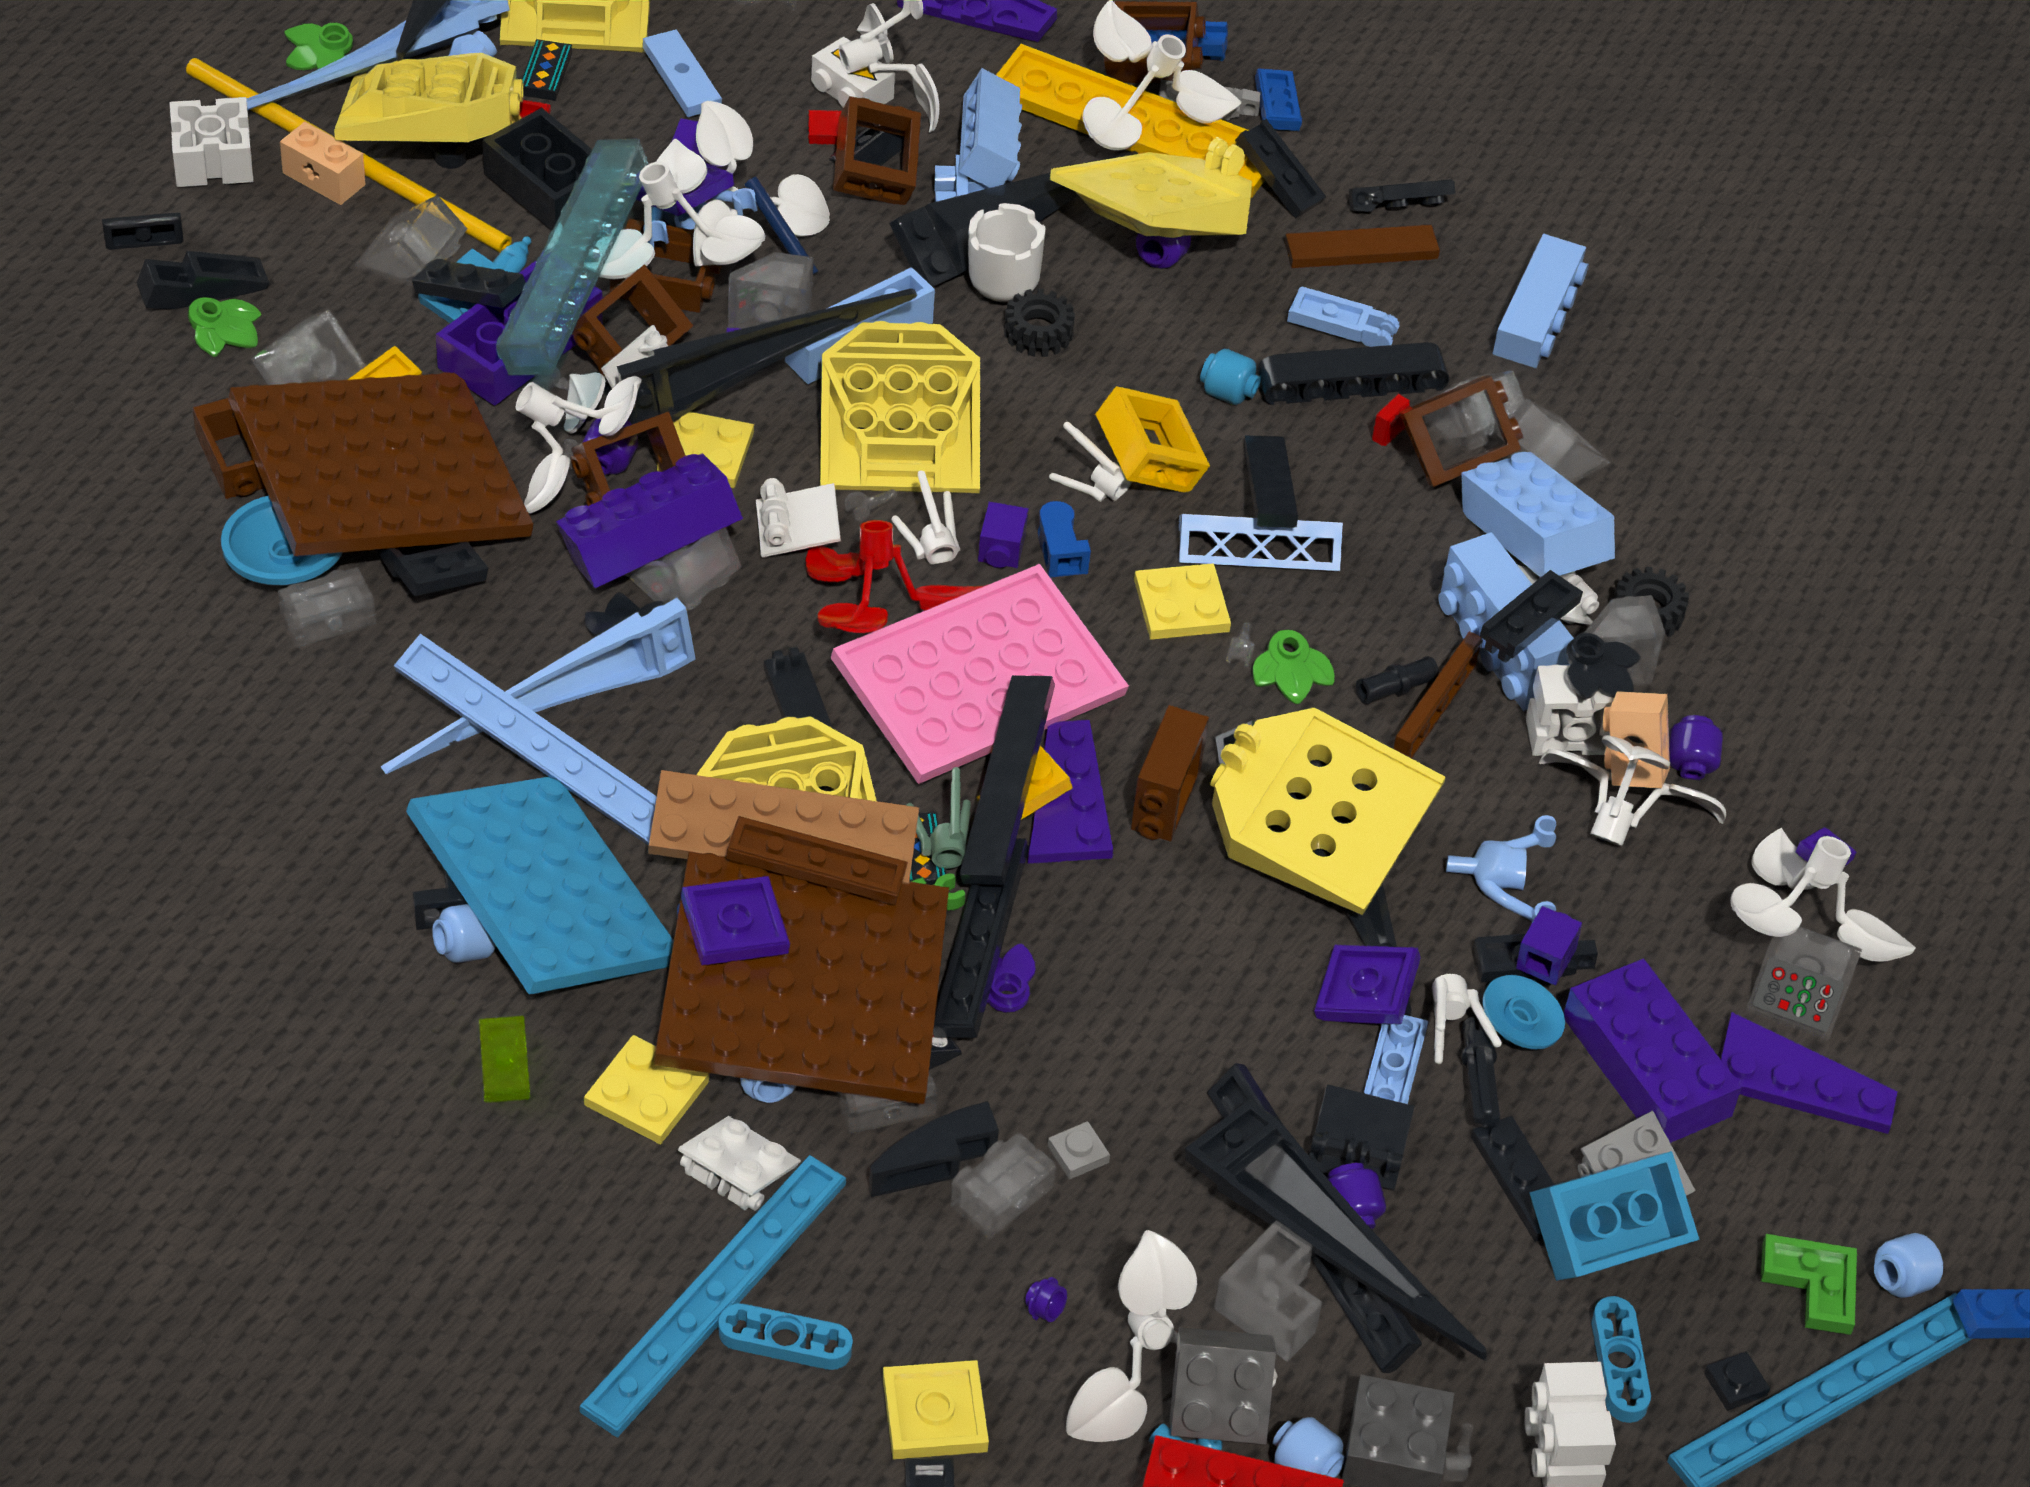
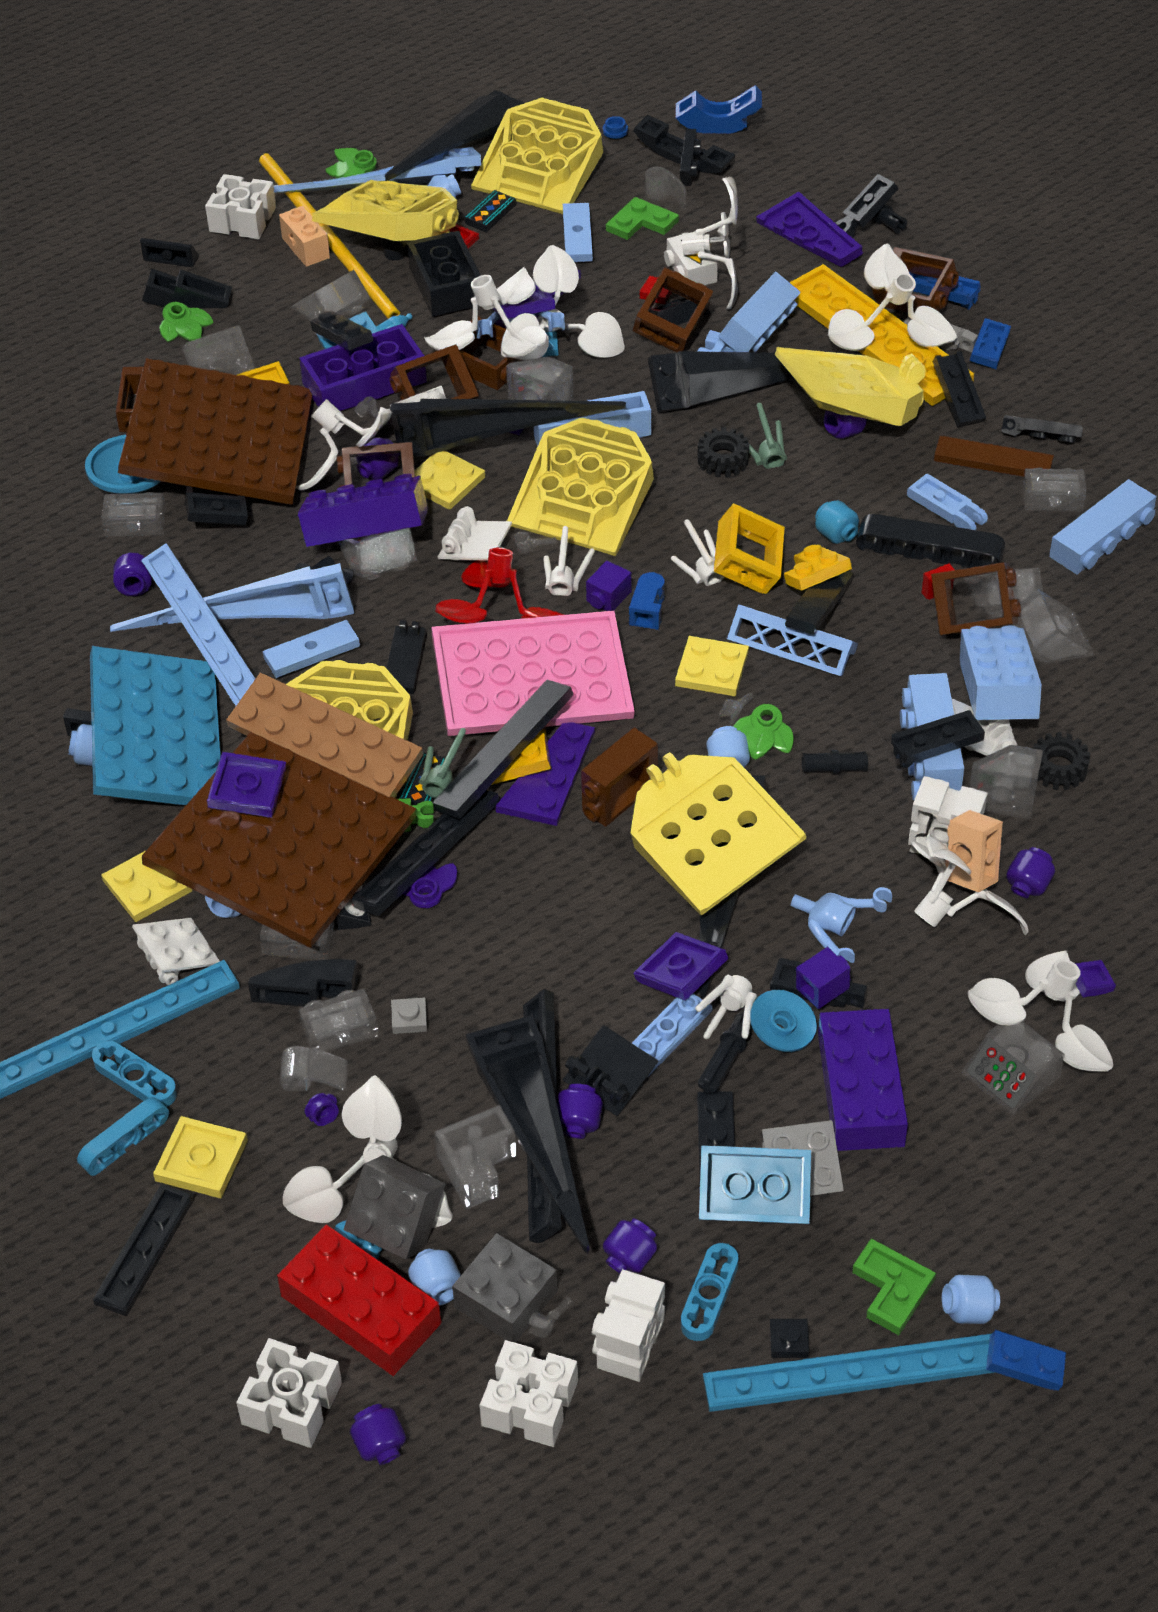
camera: 30 degrees right, 0 degrees up
(376, 688) = (131, 575): none -> dark purple head
(504, 1059) = (66, 834): clear neon green plate -> none
(572, 258) = (406, 330): clear light blue brick -> none
(673, 721) = (311, 648): none -> light blue tile
(746, 28) = (639, 214): none -> bright green plate
(776, 220) = (577, 346): dark blue bar -> none
(816, 860) = (328, 761): reddish brown tile -> none
(825, 1411) = (126, 1131): none -> dark azure beam
(997, 1253) = (304, 1064): none -> clear panel
(1005, 251) = (716, 396): white cylinder -> none
(1095, 305) = (770, 453): none -> sand green plant
(1241, 441) = (815, 566): none -> yellow plate
(1267, 696) = (729, 742): none -> light blue head
(1439, 696) = (849, 786): reddish brown tile -> none
(1458, 268) = (1054, 490): none -> clear brick
(1508, 1336) = (629, 1246): none -> dark purple head
(1599, 666) = (967, 788): black plate -> none
(1801, 1079) = (965, 1130): dark purple wing -> none

